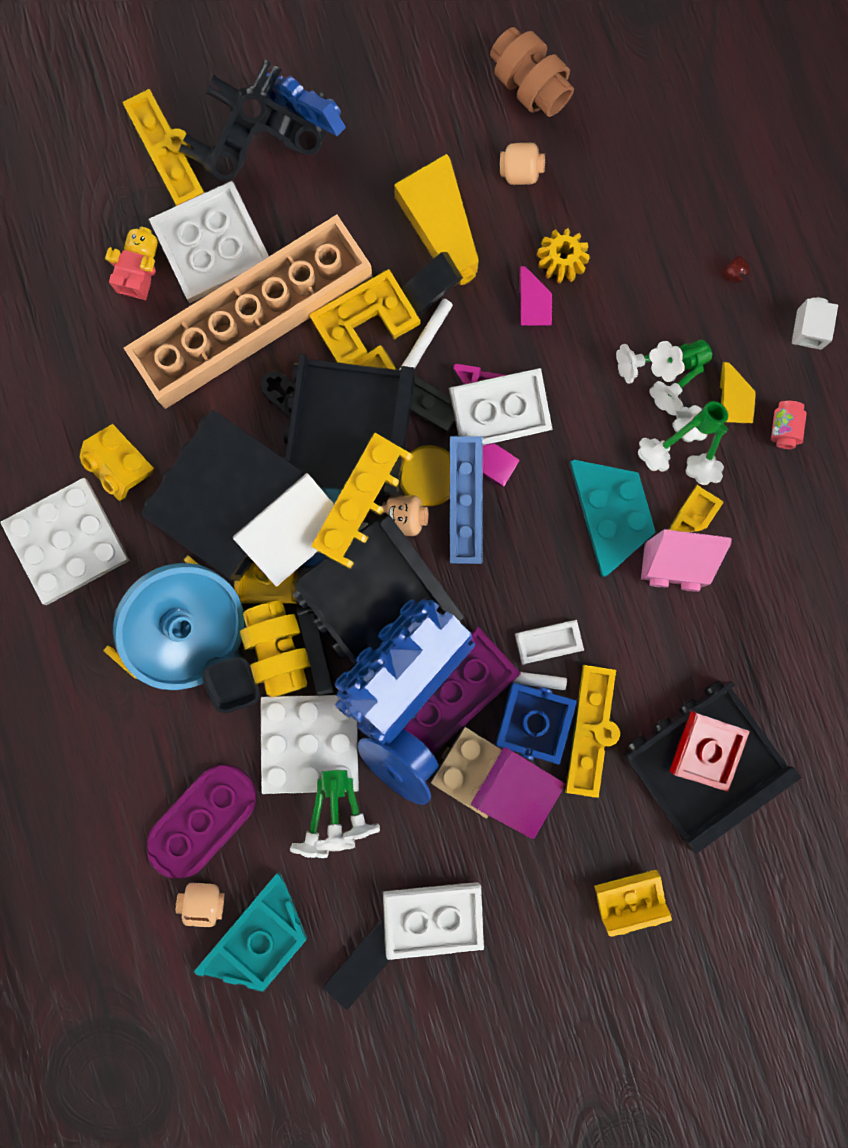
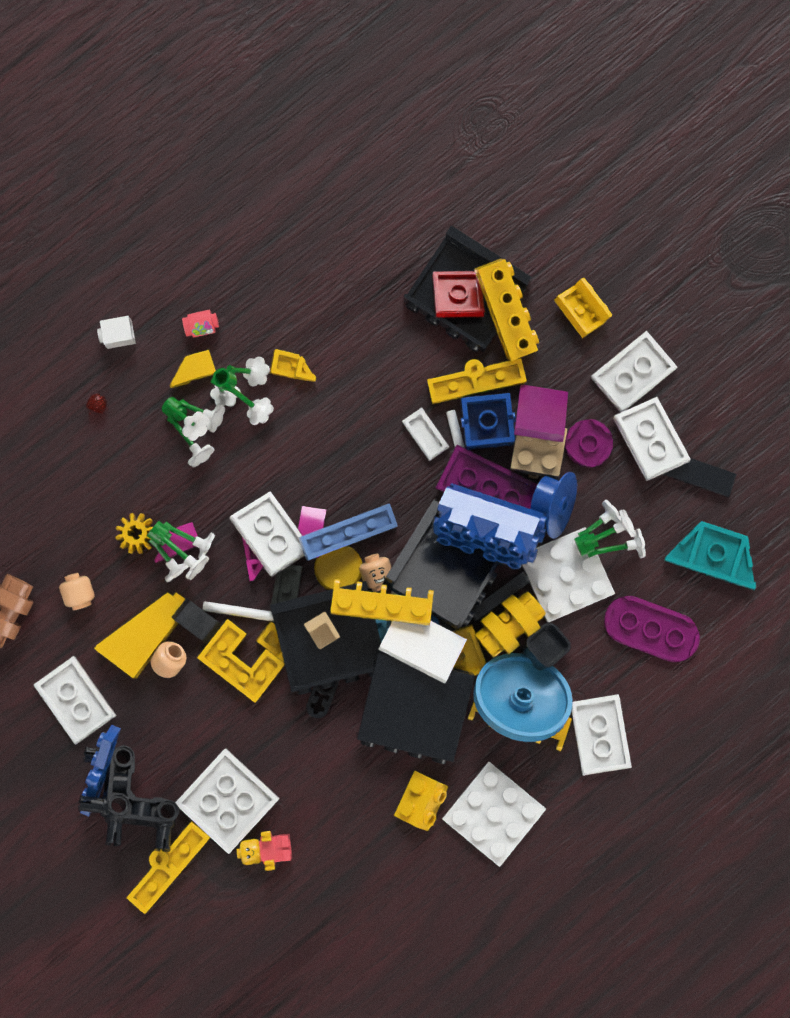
camera: 105 degrees left, 0 degrees up
(102, 706) = (600, 735): none -> white tile
(200, 904) = (708, 604): light nougat head -> none
(249, 312) = (271, 746): light nougat brick -> none
(360, 421) = (322, 630): none -> tan panel
(398, 119) = (74, 700): none -> white tile
(399, 234) = (168, 659): none -> light nougat head
(459, 839) = (588, 443): none -> magenta tile
(526, 933) = (633, 372): none -> white tile
(549, 275) = (161, 534): none -> plant
(613, 511) = (313, 424): teal wing -> none
(669, 804) = (506, 309): none -> yellow brick
(683, 559) = (332, 362): bright pink slope -> none

